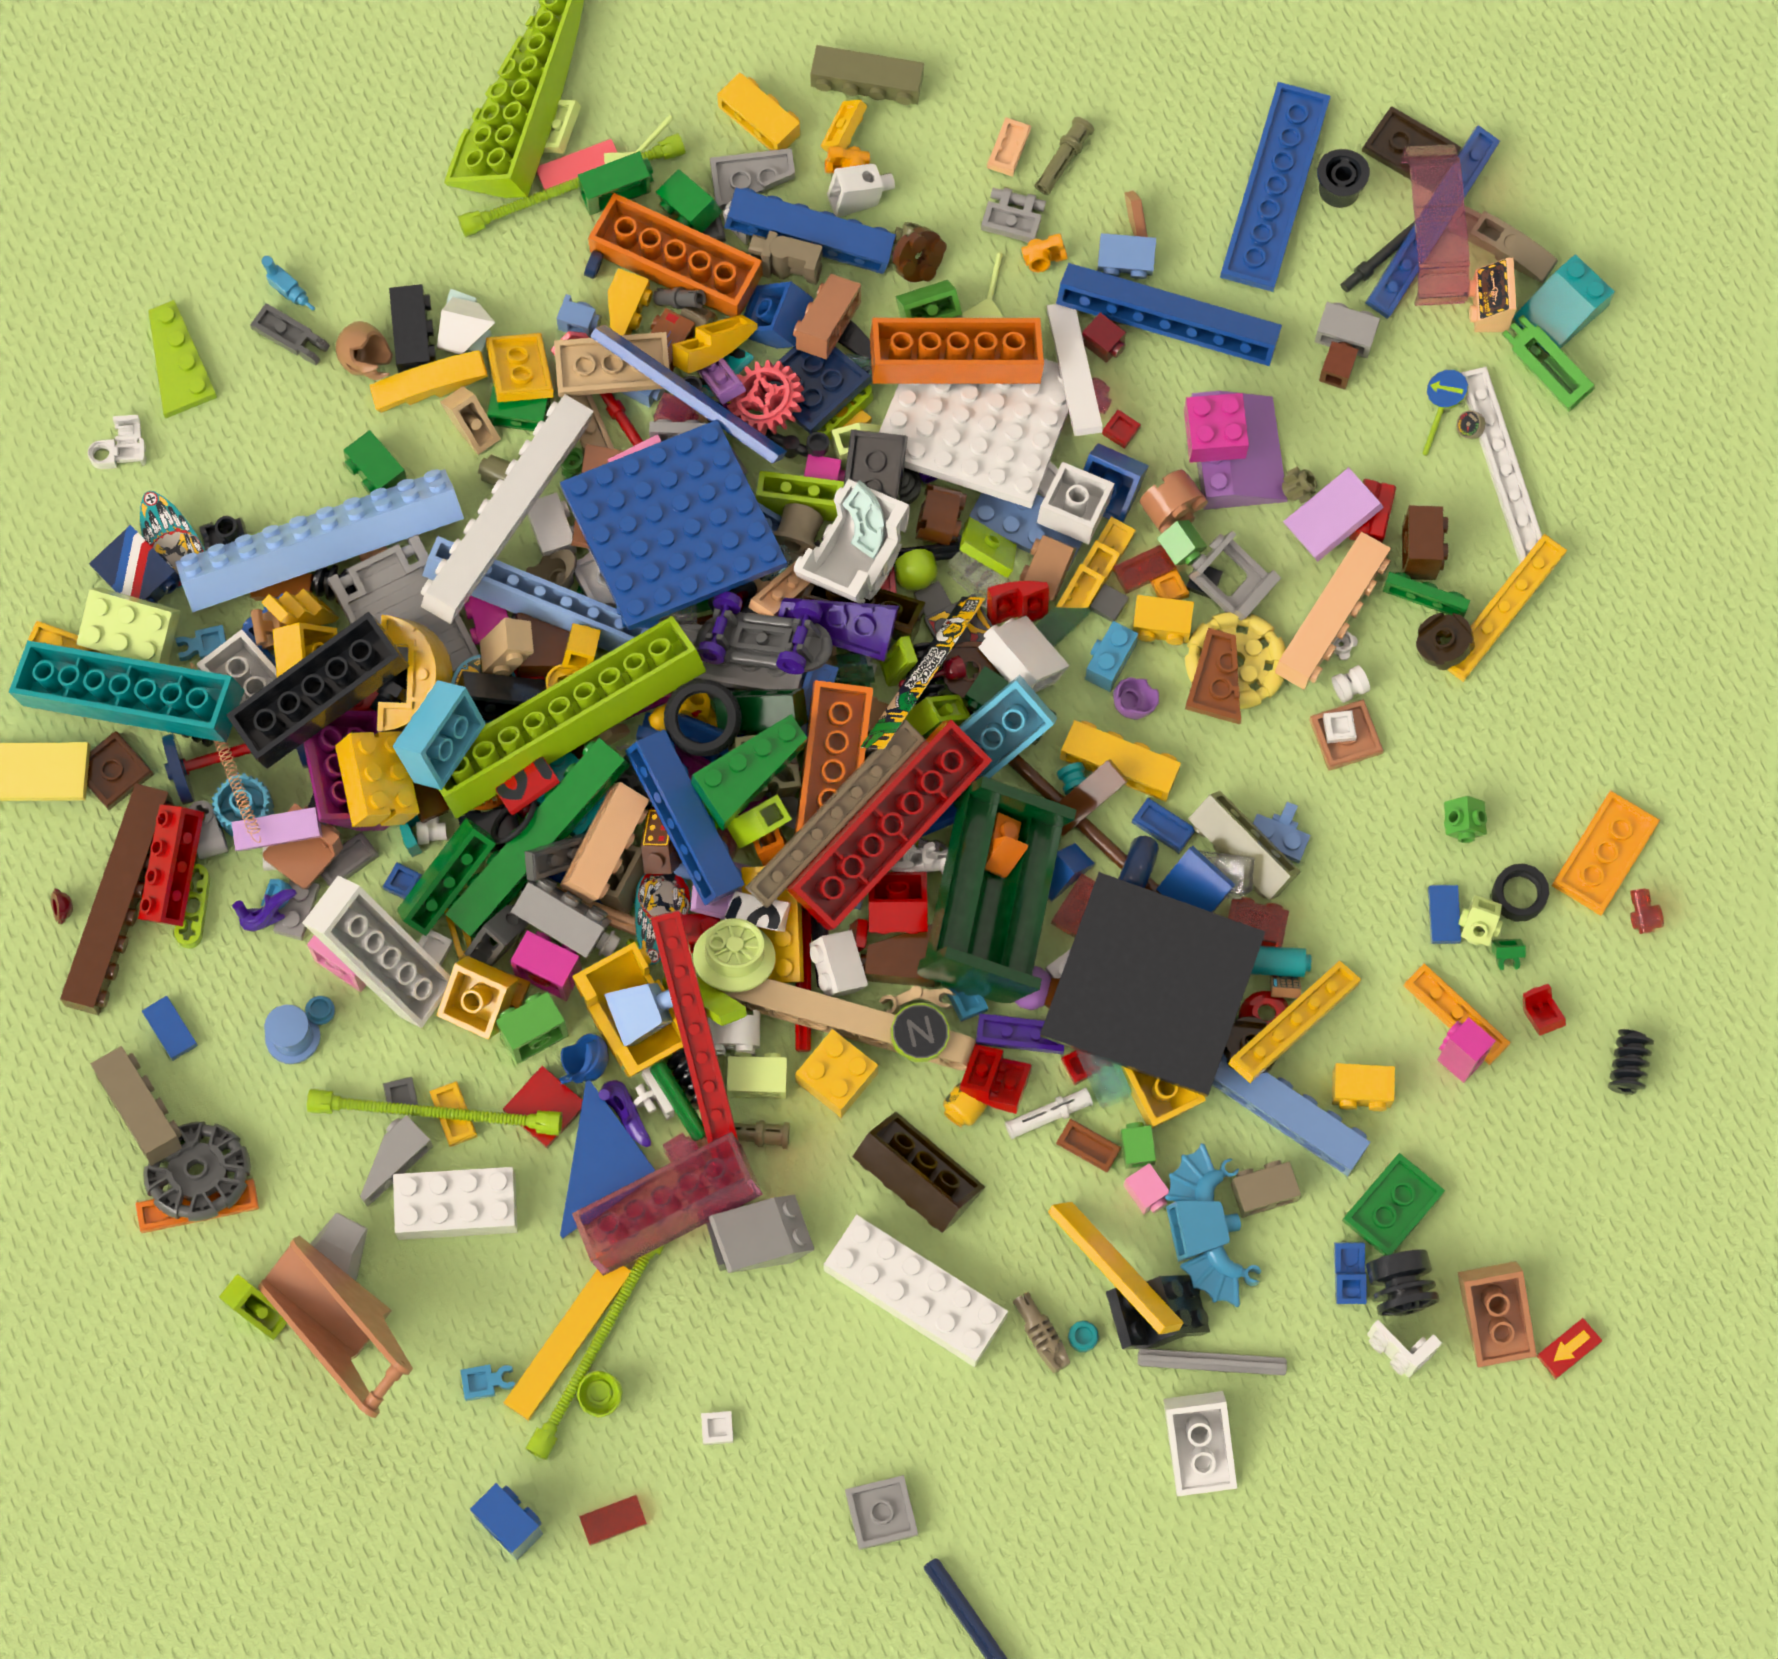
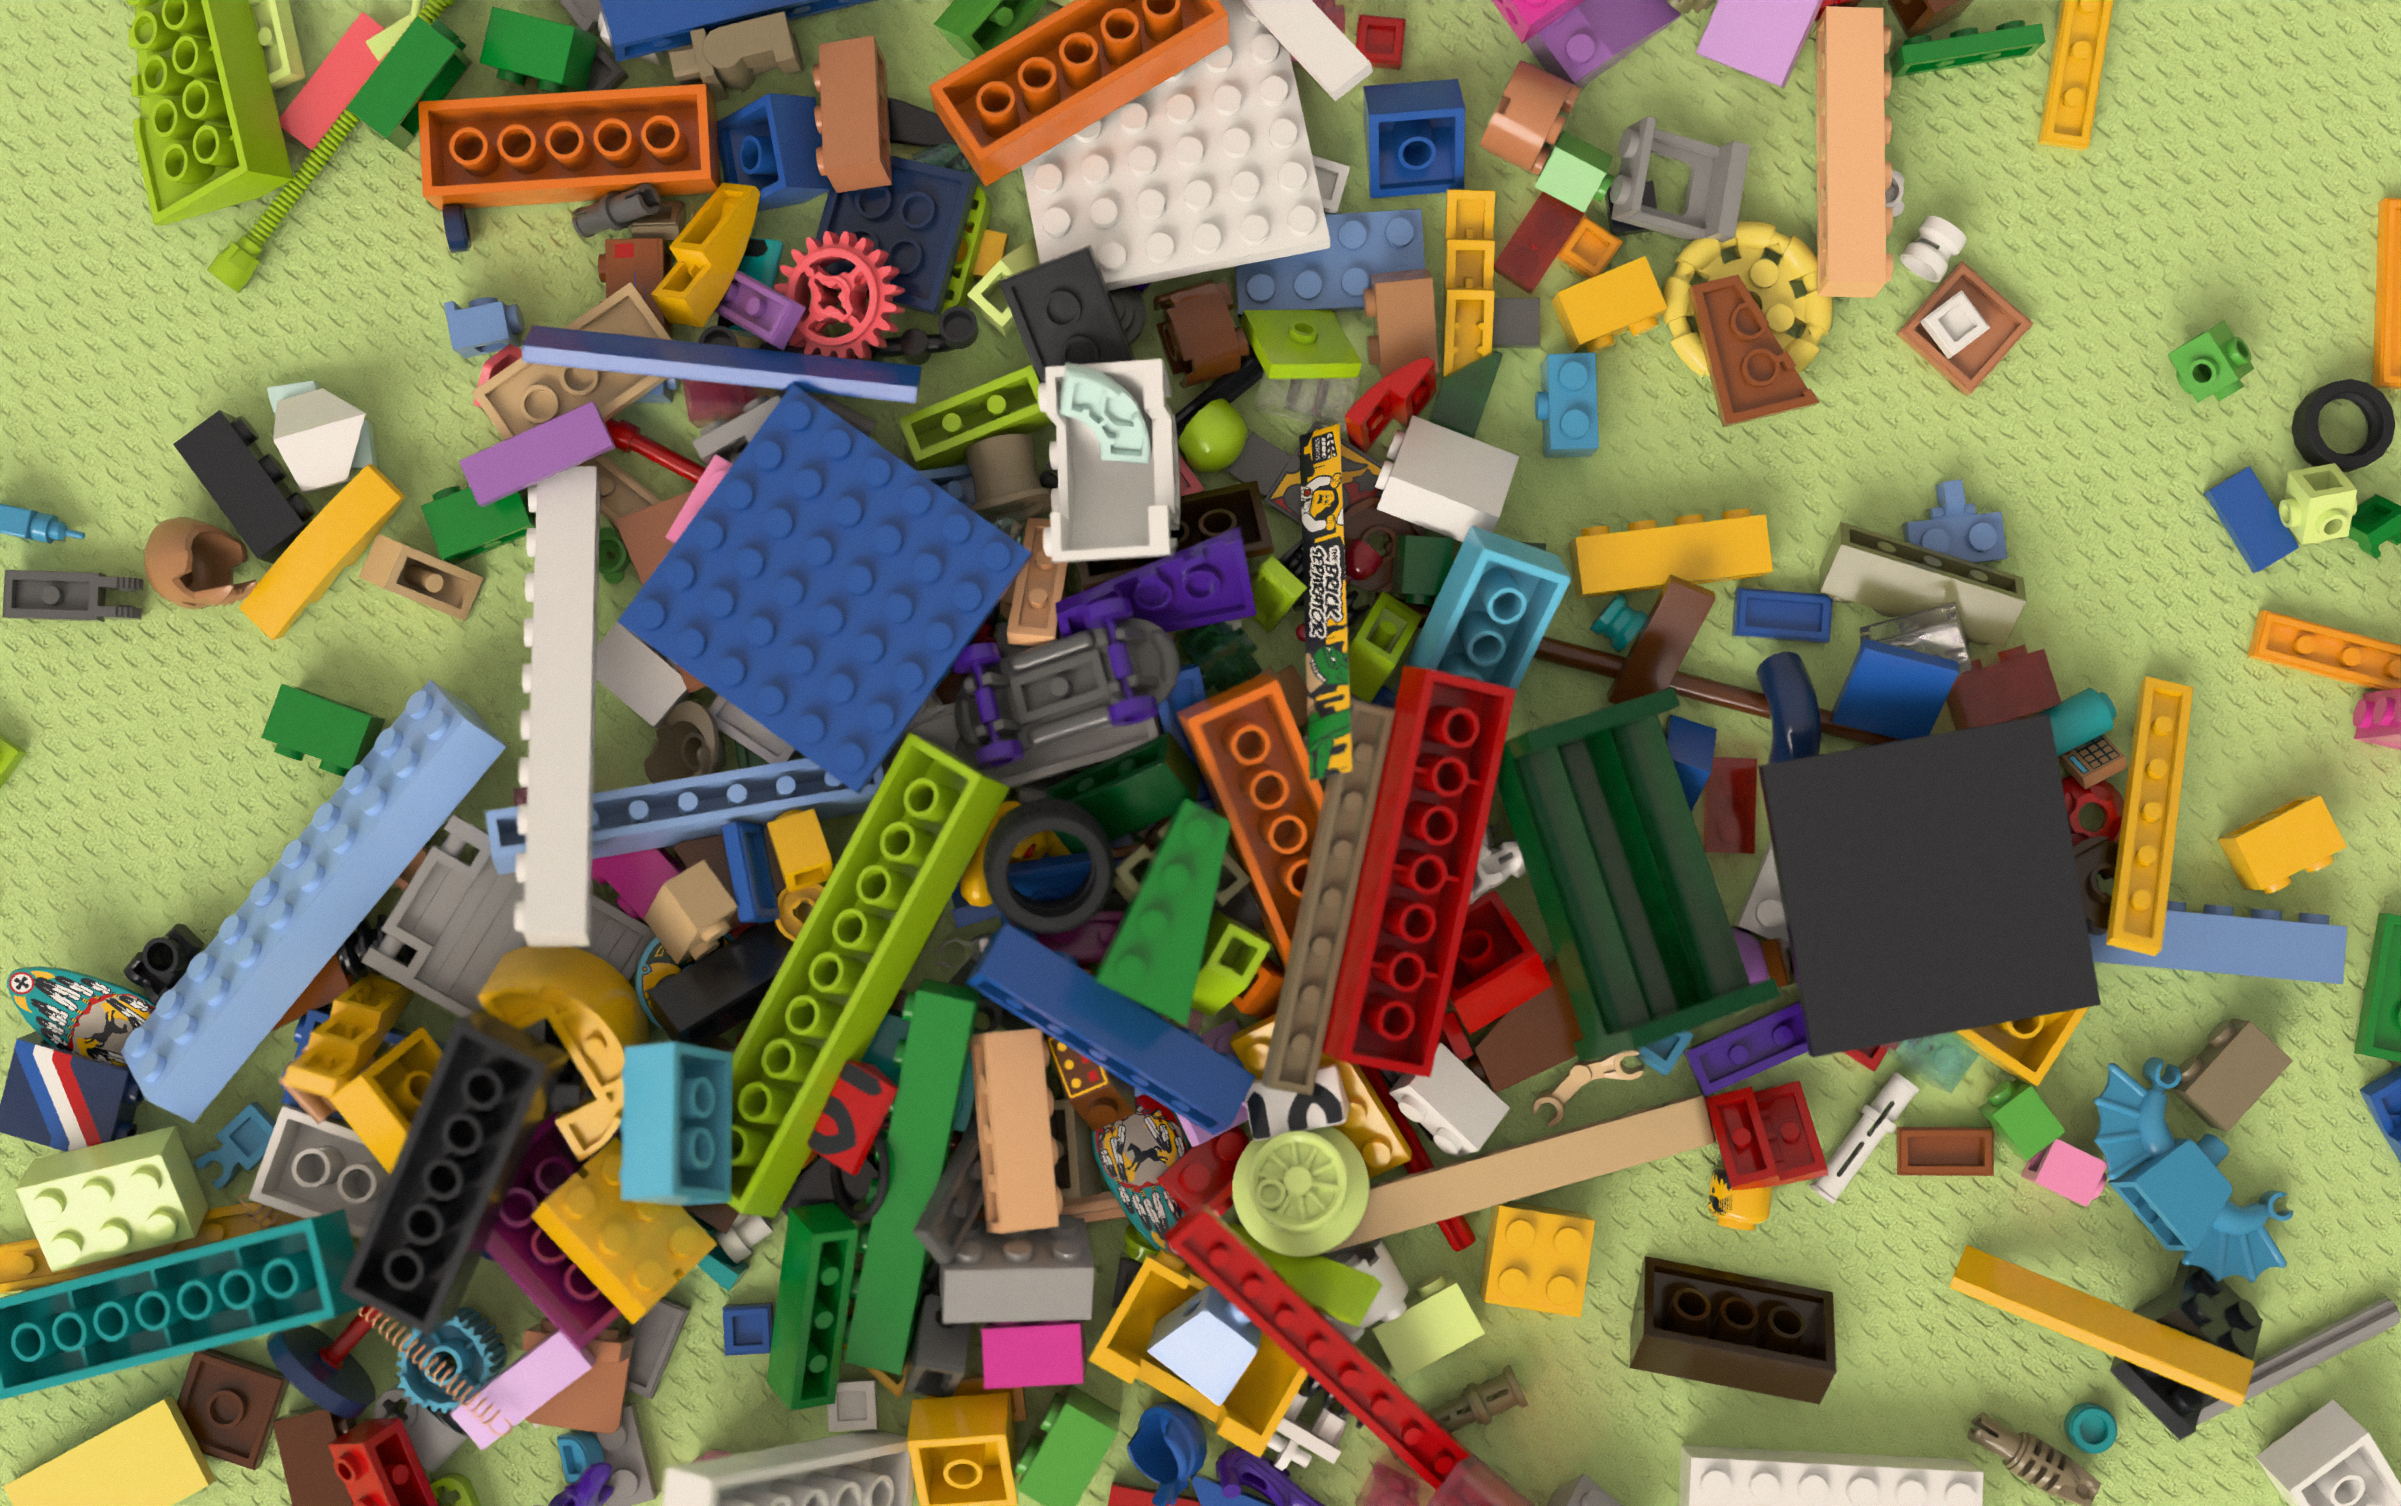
camera: 30 degrees left, 15 degrees up
(493, 469) = (503, 634): olive brick -> none
(519, 367) = (425, 452): yellow tile -> none
(549, 644) = (751, 872): none -> blue tile
(568, 386) = (537, 454): none -> medium lavender tile
(608, 944) = (1102, 1253): white plate -> none
(626, 300) = (538, 258): yellow slope -> none
(678, 1100) = (1344, 1438): green axle -> none
(824, 468) = (989, 359): dark pink brick -> none
(919, 1032) = (1628, 1140): black tile -> none
(1004, 846) = (1600, 808): orange slope -> none
(1075, 503) = (1391, 202): white brick -> none
(1135, 698) = (1640, 449): medium lavender hair -> none
(1447, 654) = (2023, 80): dark brown plate -> none

